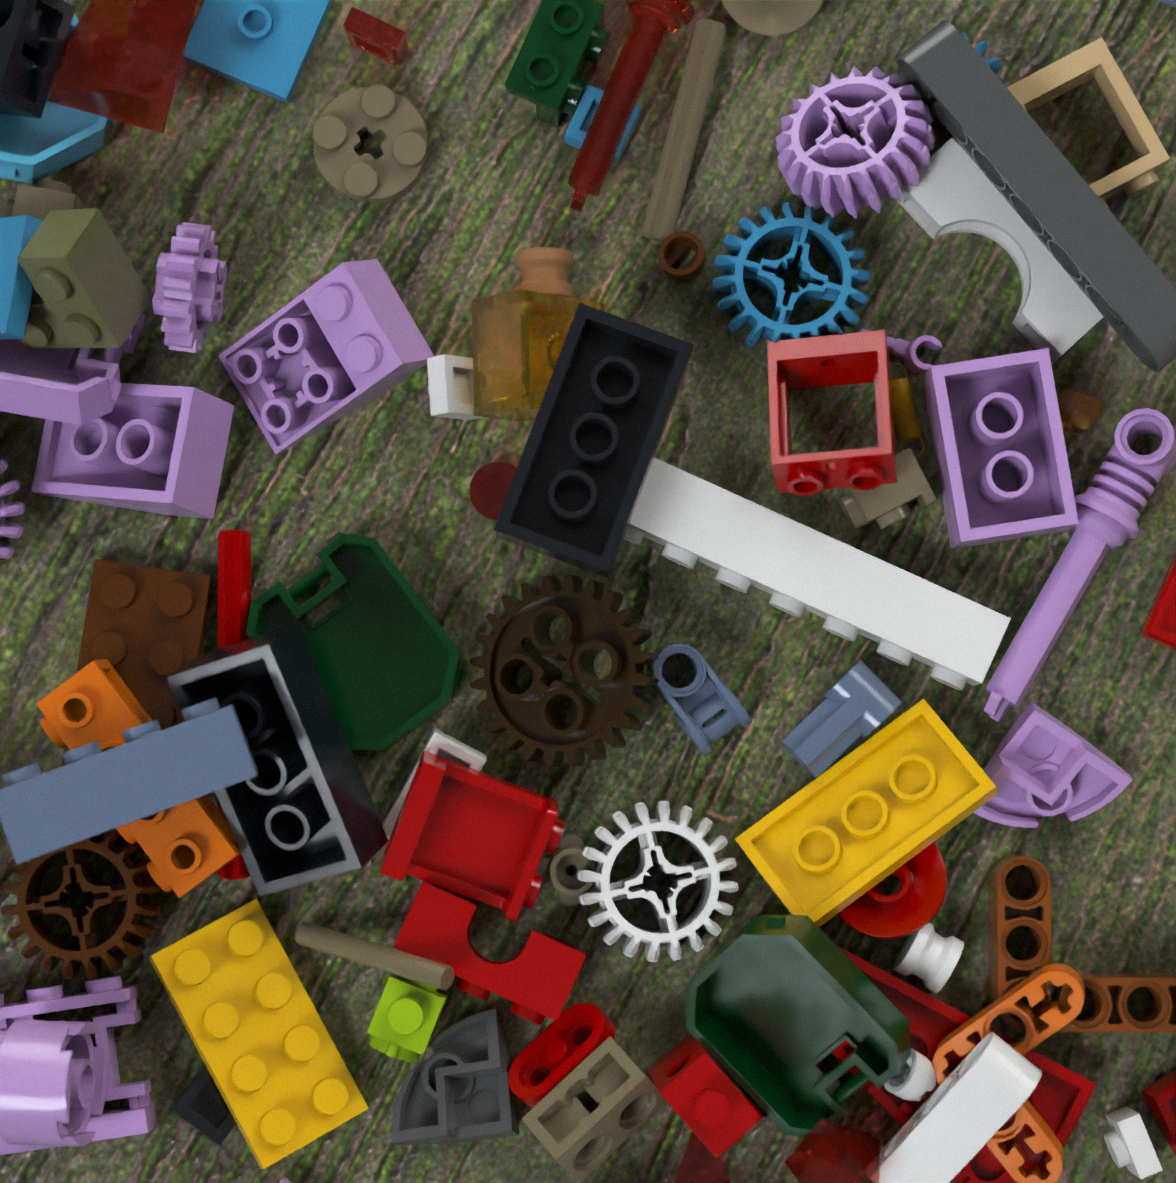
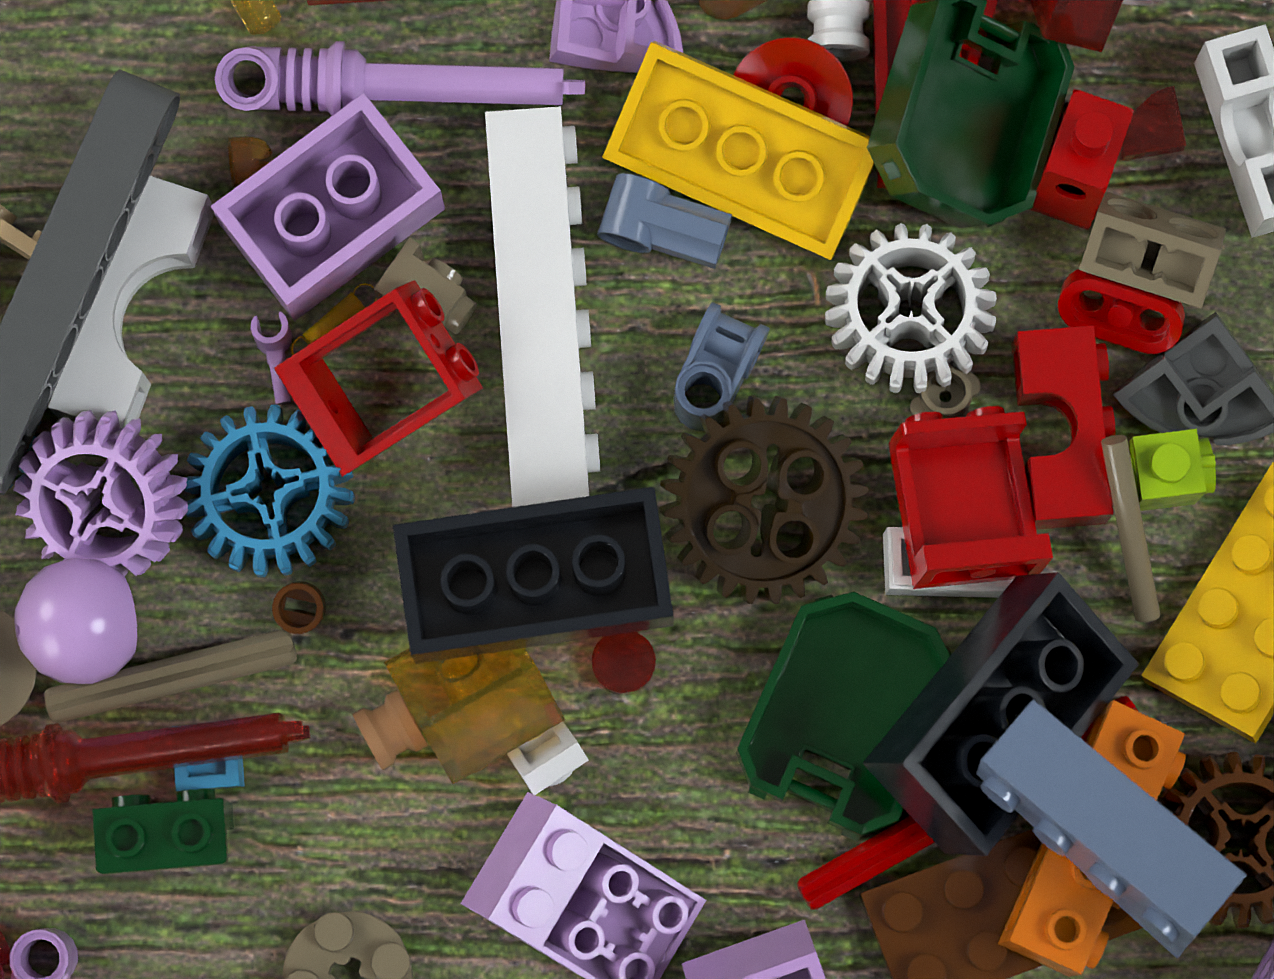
camera: 120 degrees left, 5 degrees down
(763, 70) = (77, 621): none -> lavender helmet

